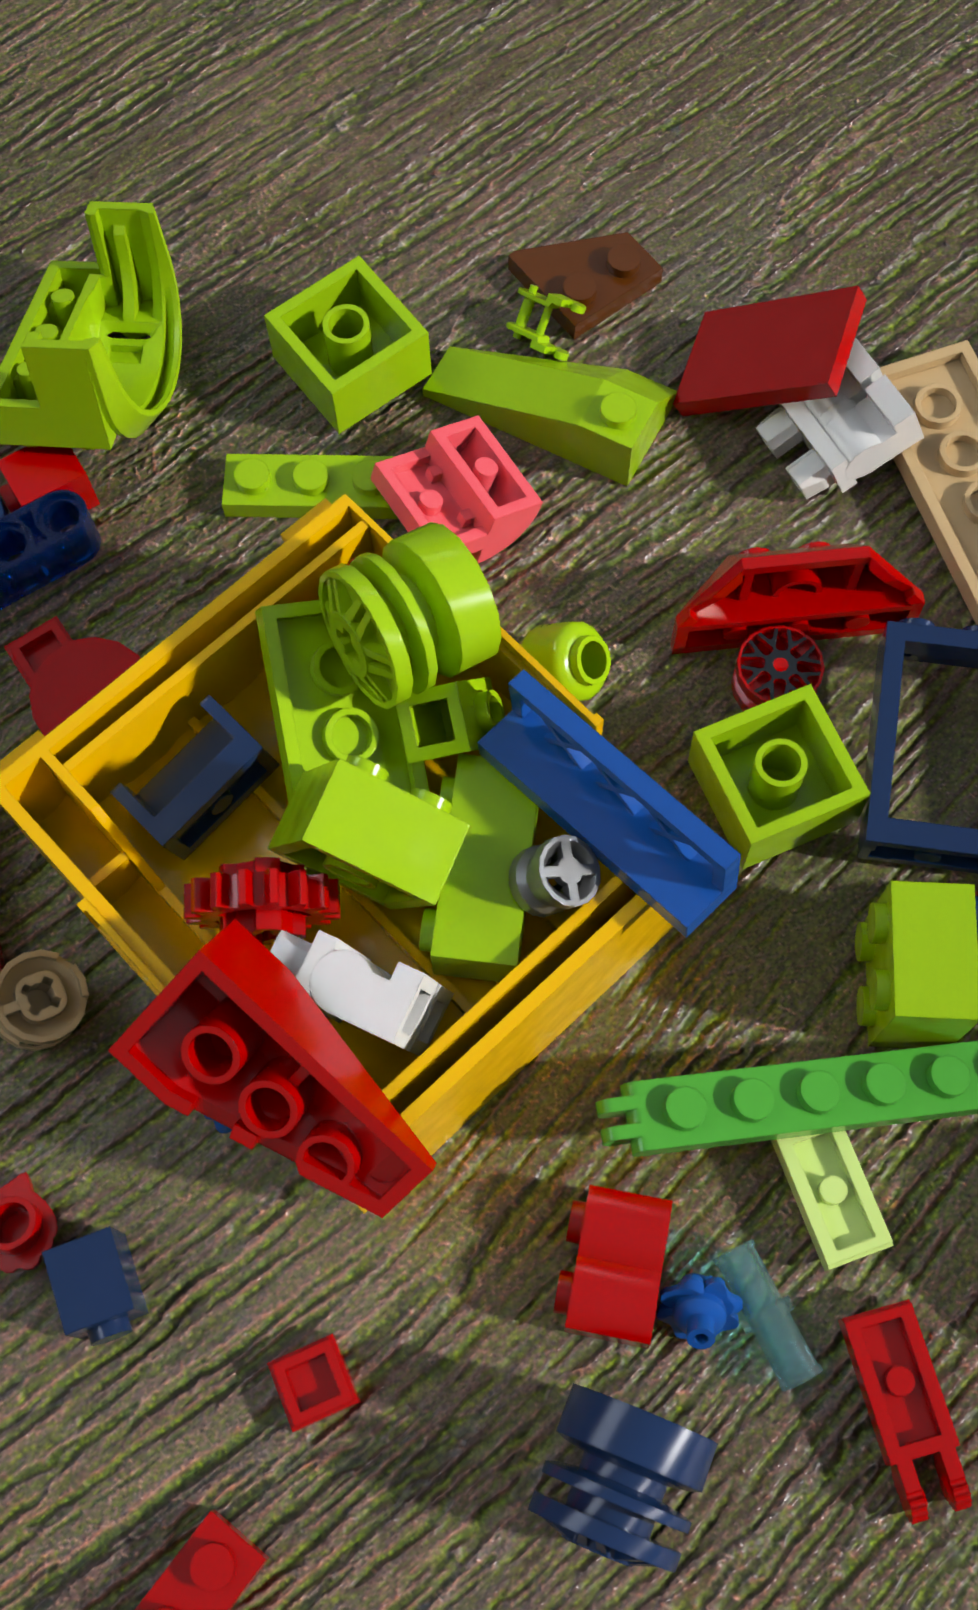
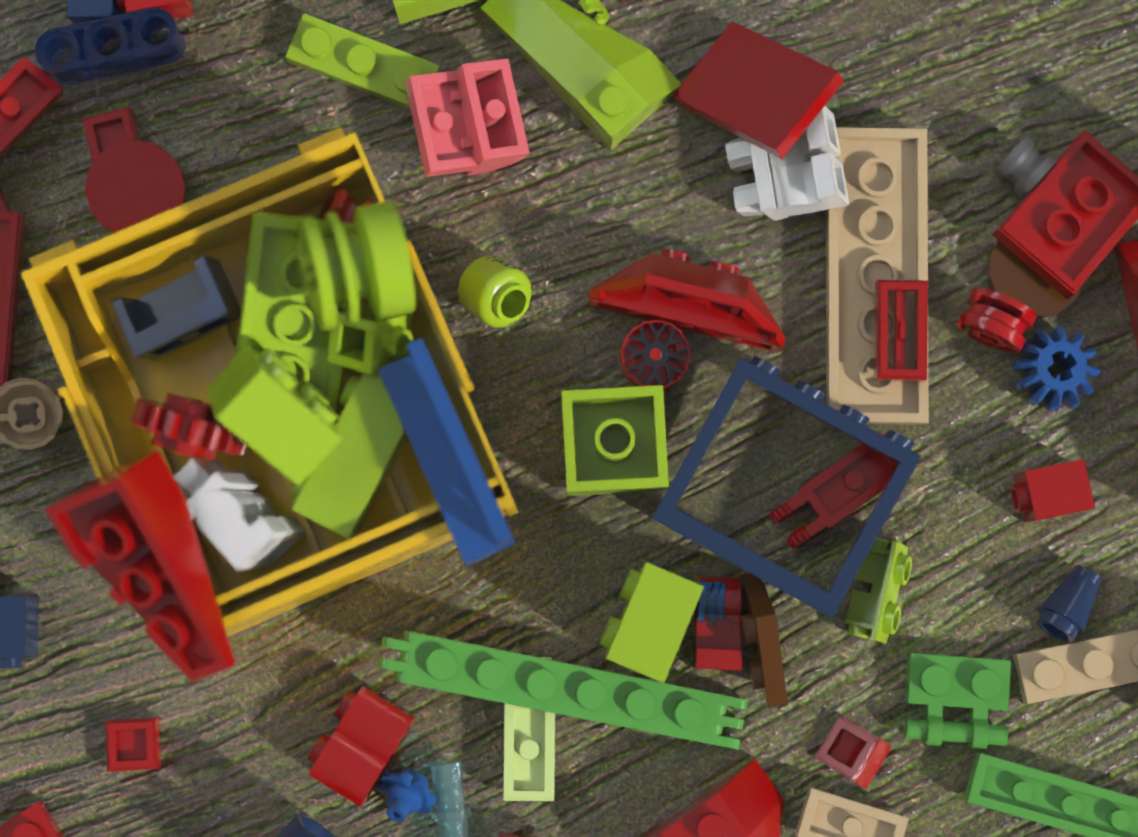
camera: 15 degrees right, 15 degrees up
(559, 858) = (404, 496): flat silver wheel -> none

